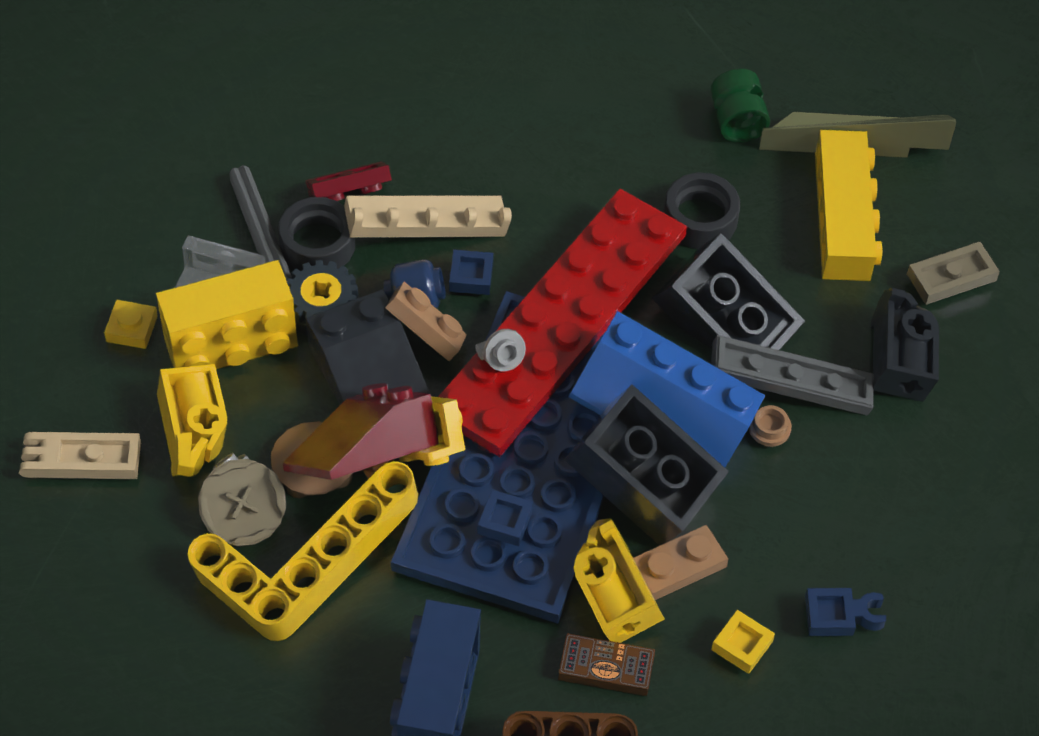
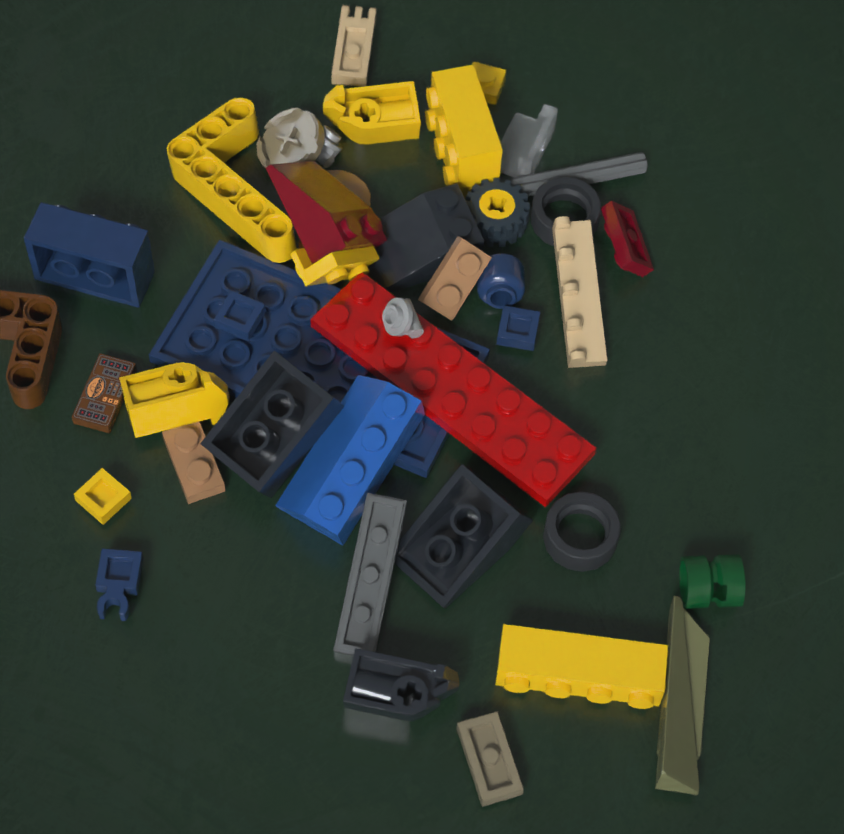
camera: 95 degrees right, 5 degrees up
(770, 426) = (324, 556): medium nougat plate -> none

